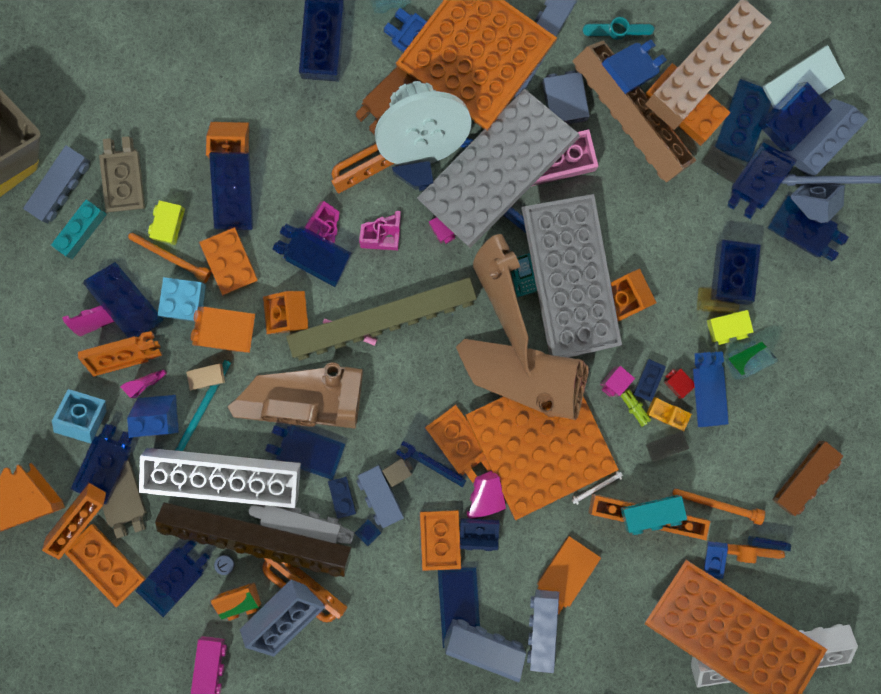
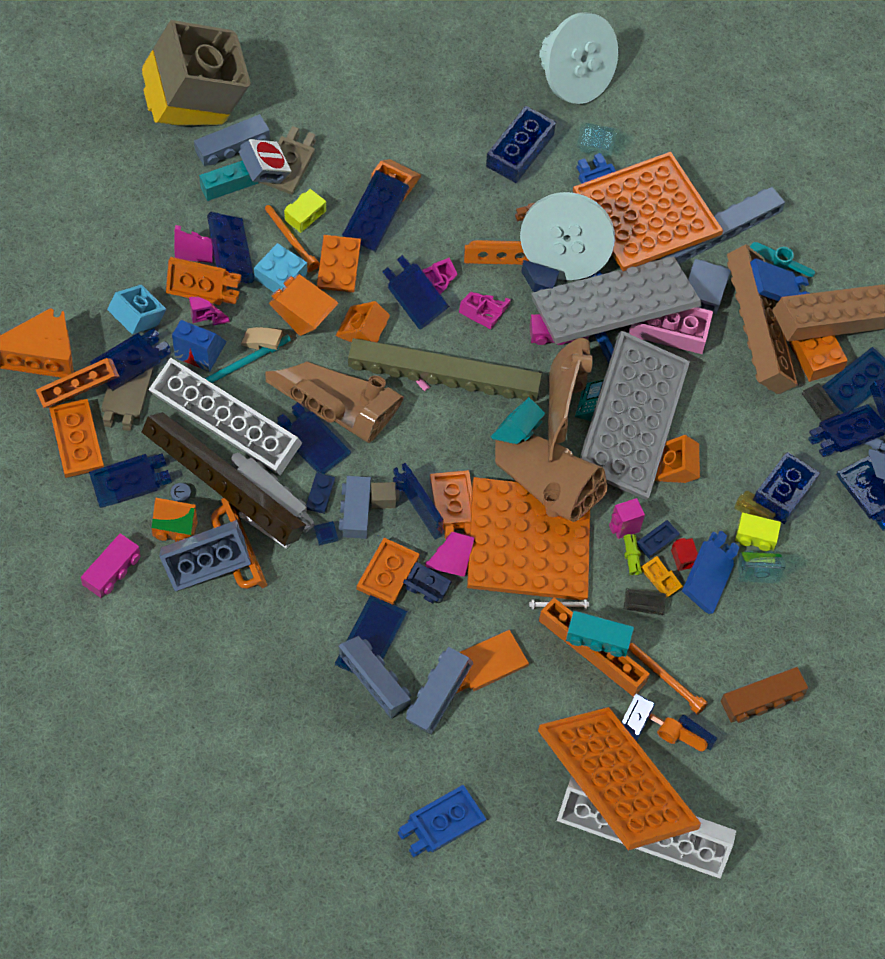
camera: 25 degrees right, 25 degrees down
(101, 198) = (264, 161): none -> piece
(477, 340) = (519, 423): none -> teal slope

